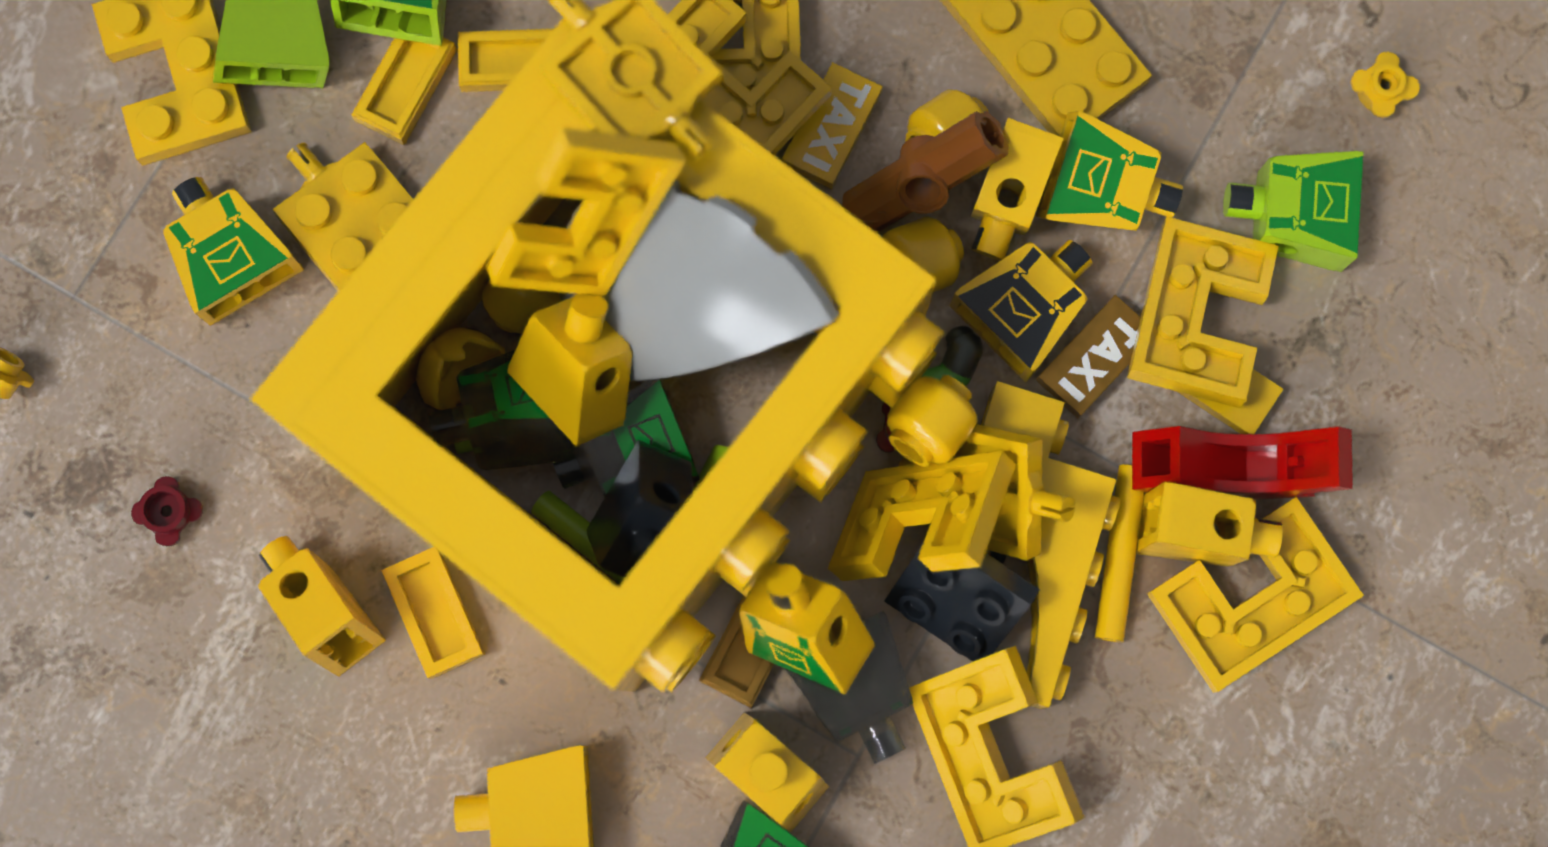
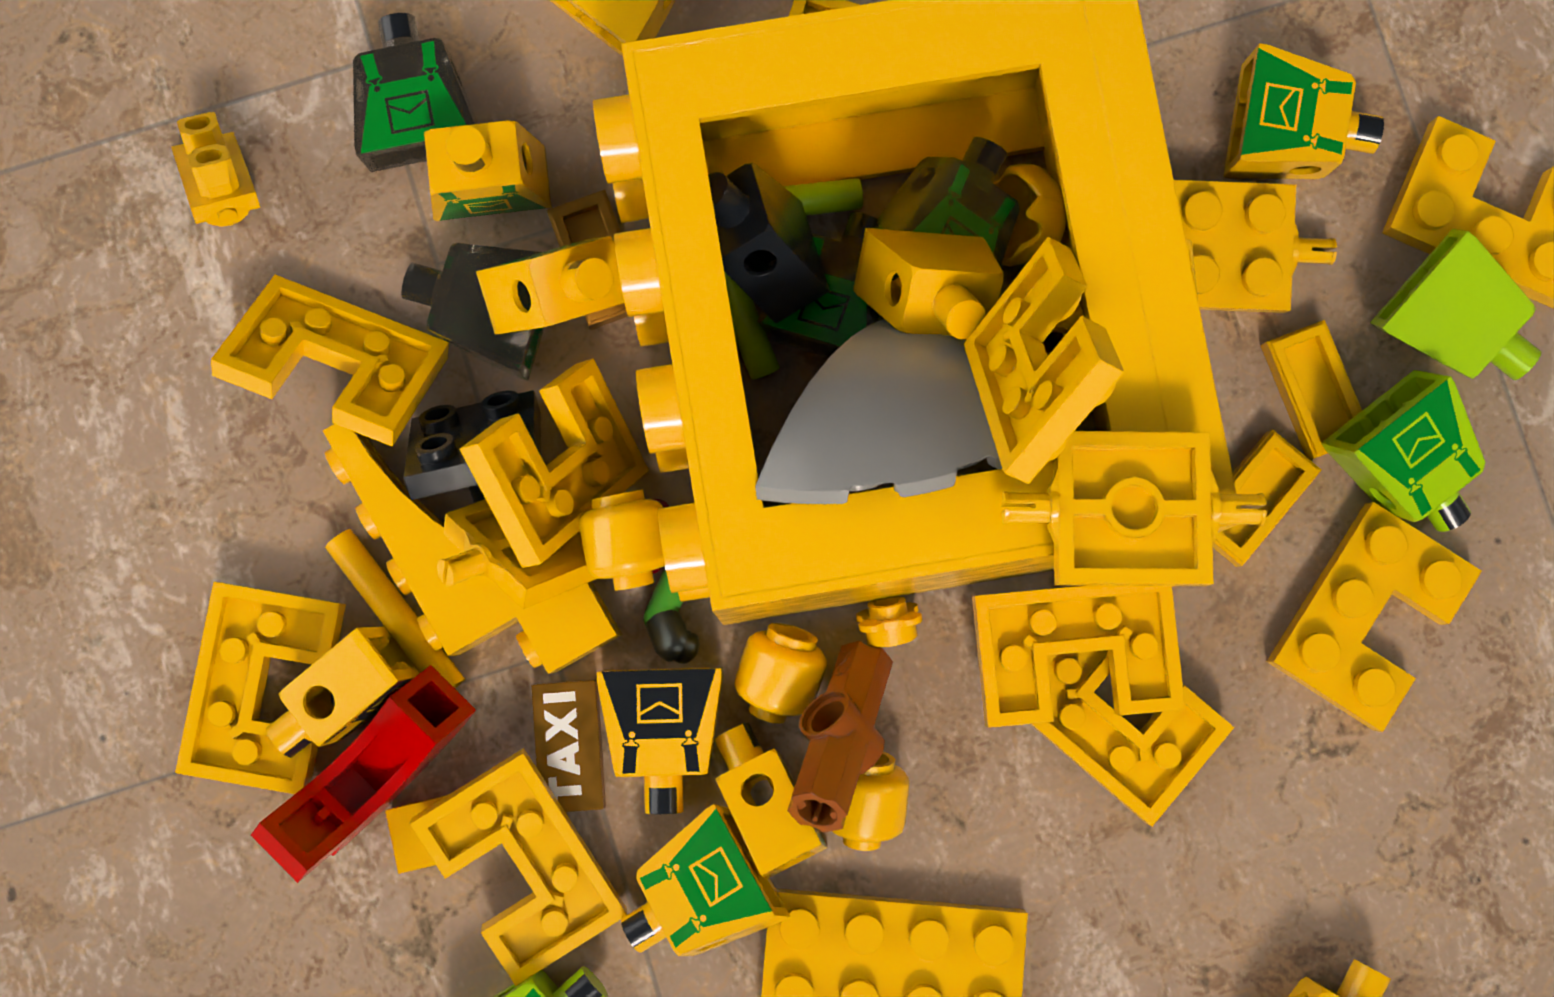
camera: 135 degrees right, 5 degrees up
(831, 133) = (954, 702): yellow tile -> none

